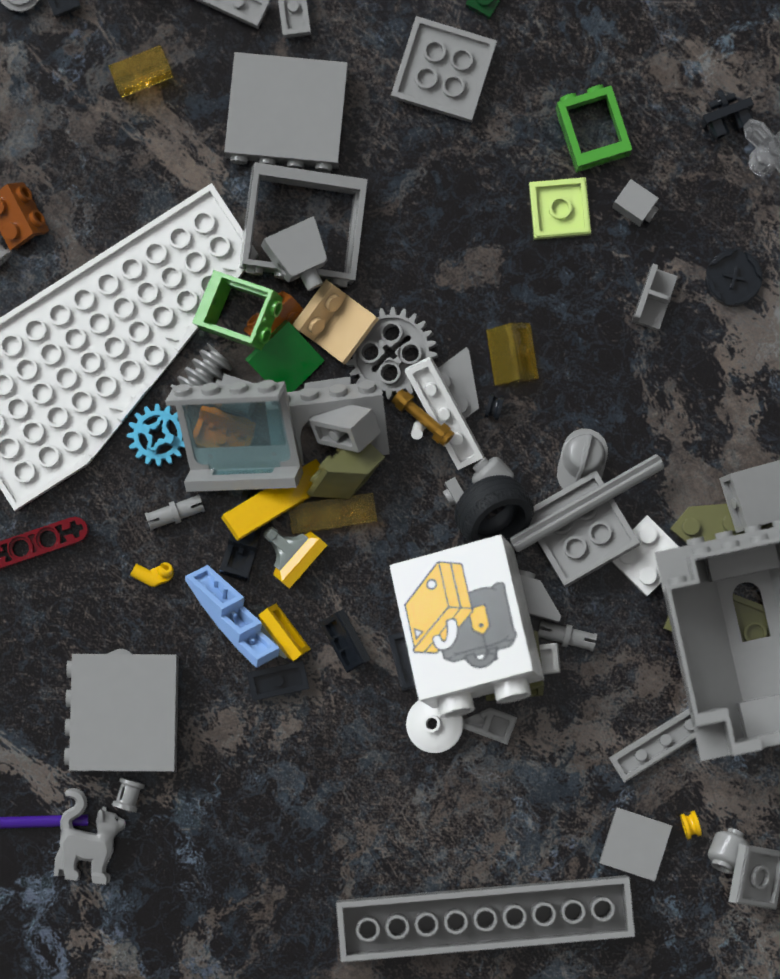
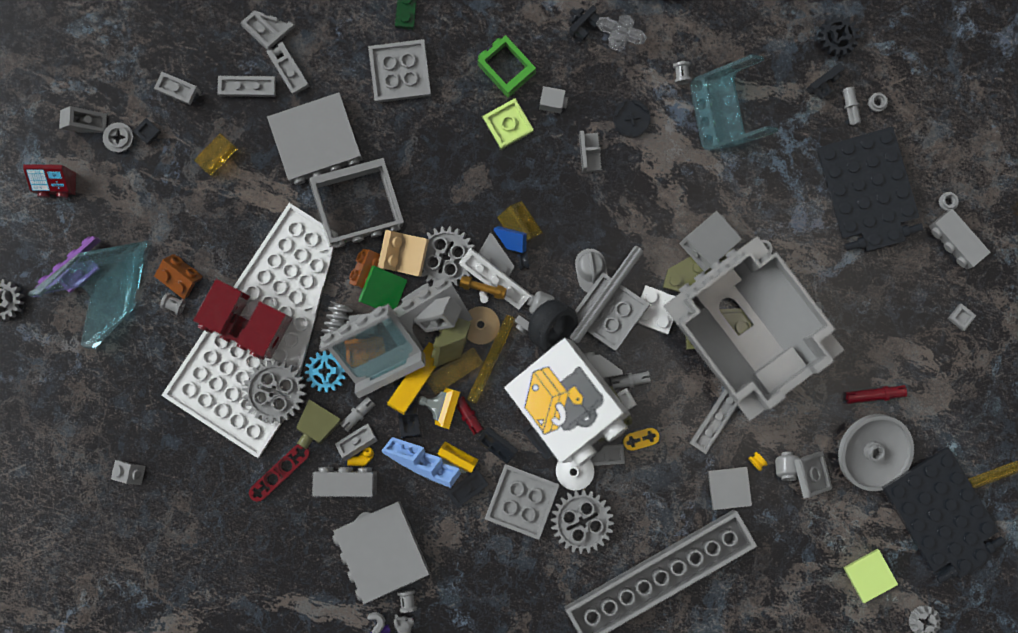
camera: 25 degrees left, 0 degrees up
(59, 449) = (280, 375): none -> light grey gear
(91, 344) = (222, 313): none -> dark red piece
(112, 501) = (316, 424): none -> olive torso
(117, 595) = (345, 482): none -> light grey brick
(156, 549) = (356, 442): none -> light grey plate
(214, 301) = (323, 277): bright green window -> none
(297, 252) = (360, 221): light grey torso -> none
(324, 583) = (469, 416): none -> dark red pin
(343, 732) = (522, 501): none -> light grey plate
(390, 520) = (491, 359): none -> clear yellow axle
(410, 476) = (490, 329): none -> tan dish
(414, 823) = (590, 537): none -> light grey gear
(493, 369) = (512, 239): none -> blue tile
(545, 714) = (642, 443): none -> yellow beam

